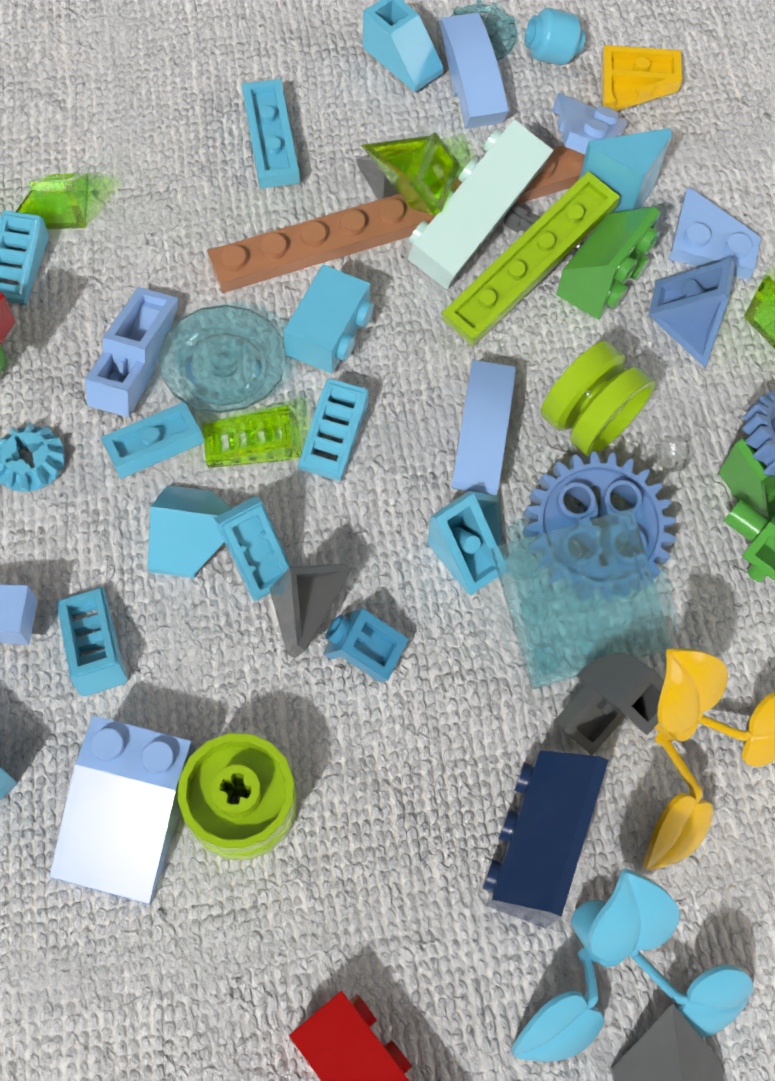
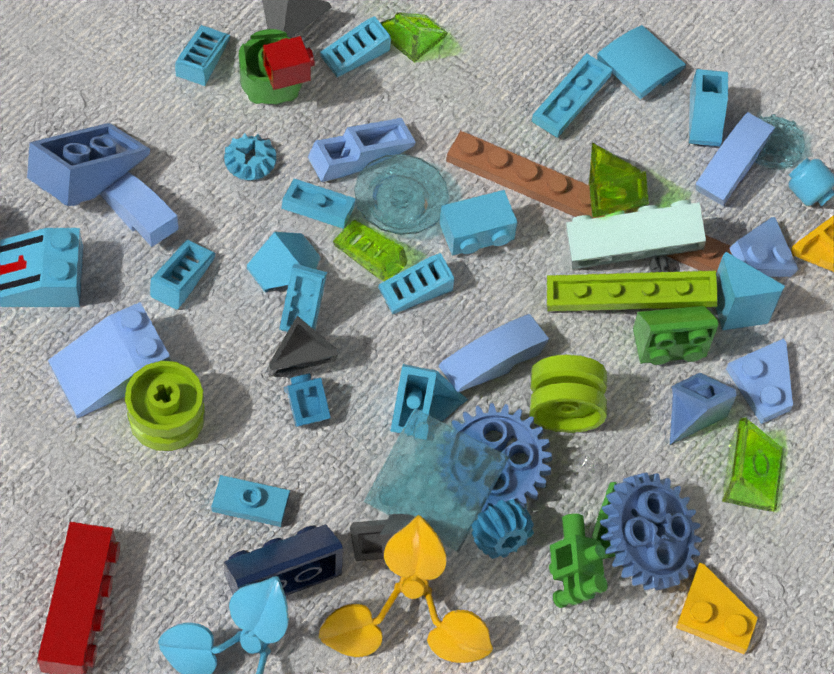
camera: 45 degrees right, 5 degrees down
(294, 53) = (640, 61): none -> medium azure slope
(426, 803) = (250, 501): none -> medium azure plate
(689, 583) = (502, 528): none -> dark azure gear

